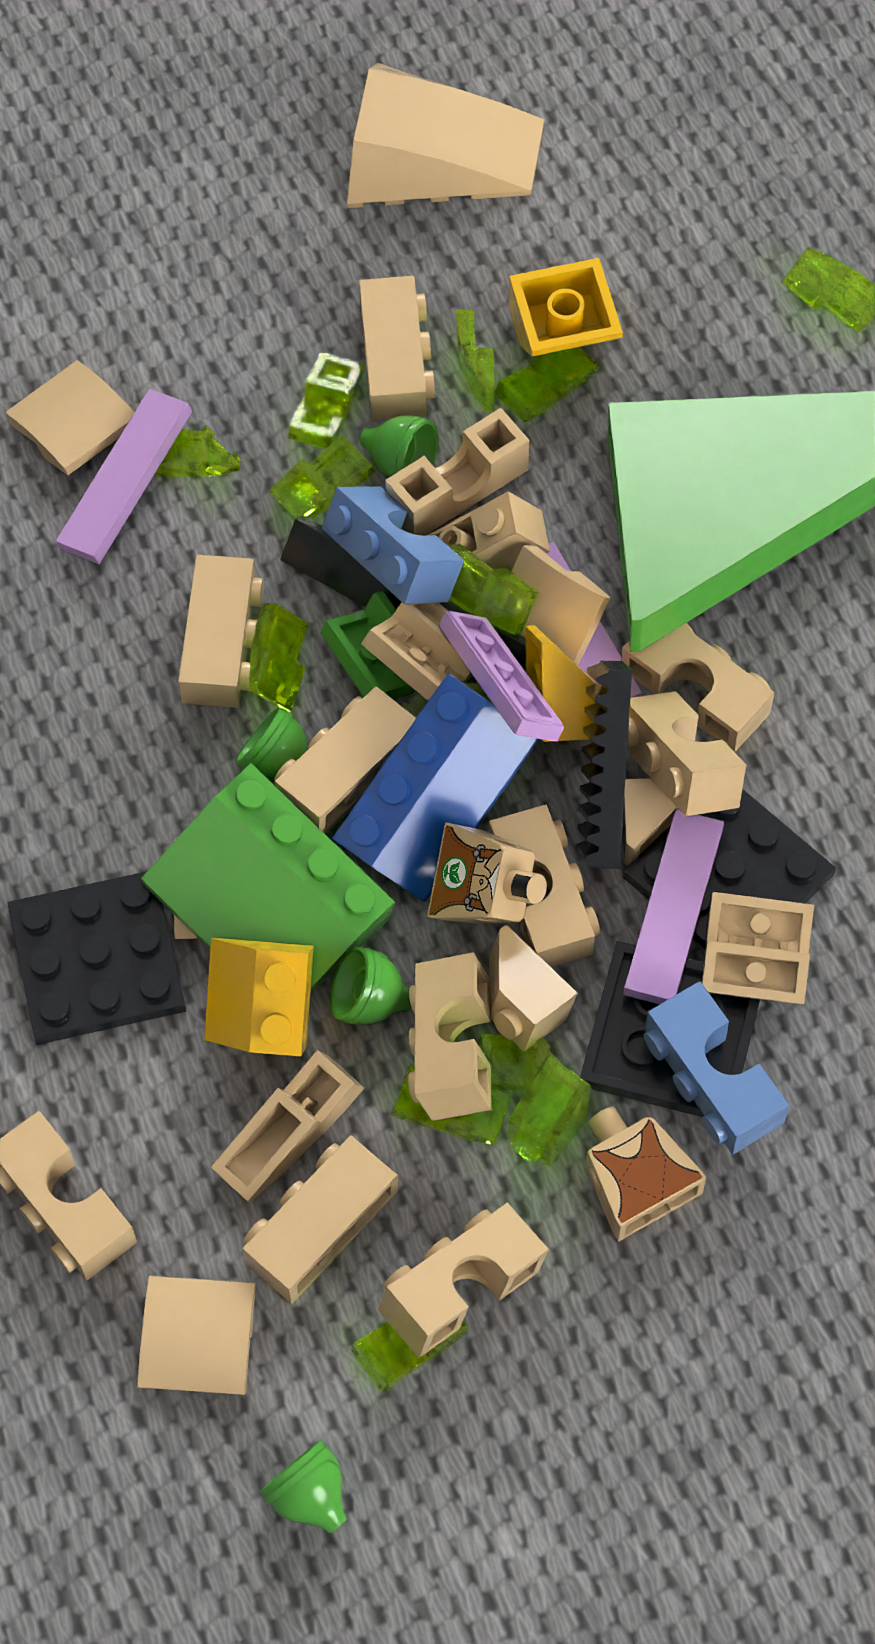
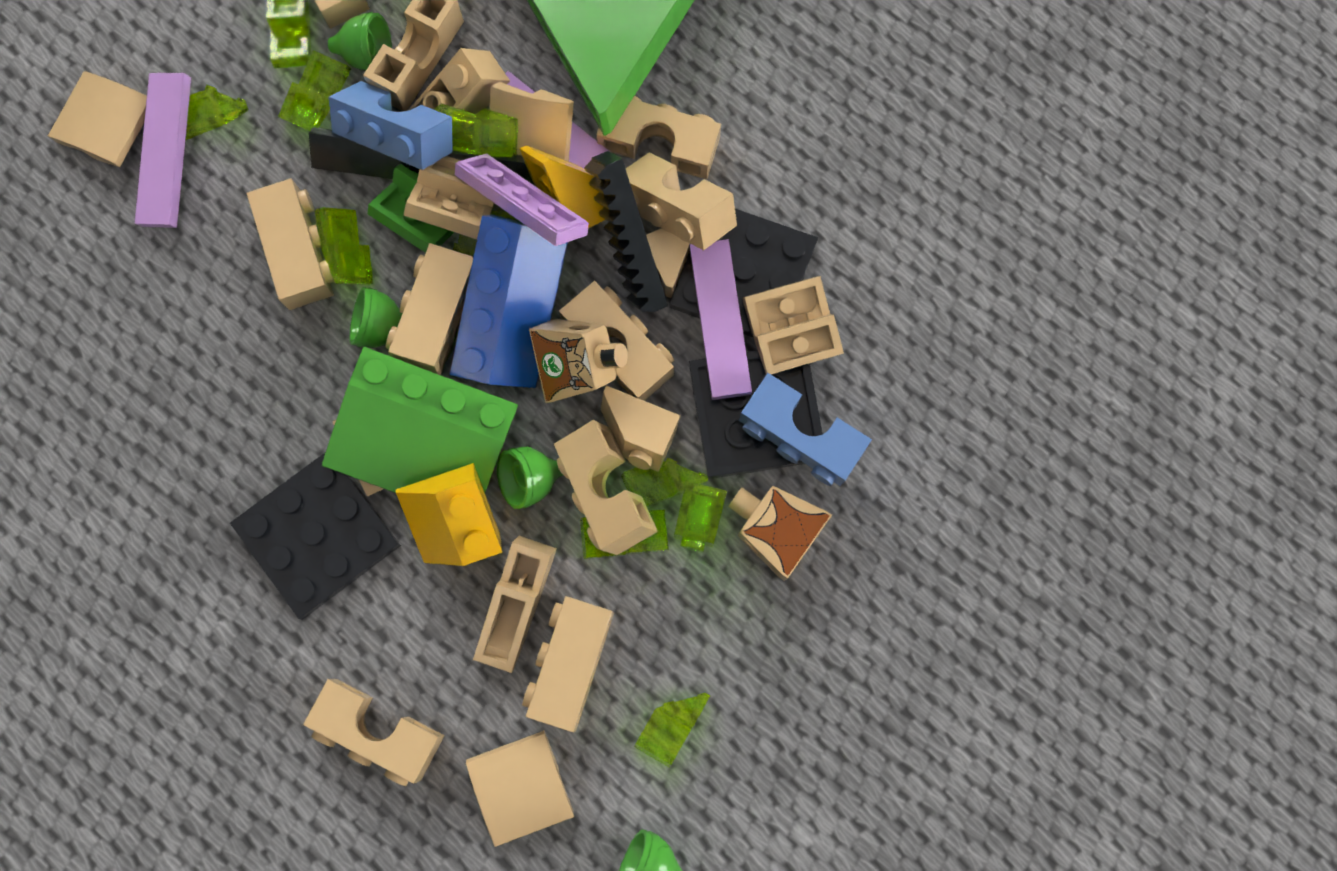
camera: 25 degrees left, 15 degrees up
(492, 1250) = (675, 698): tan arch -> none

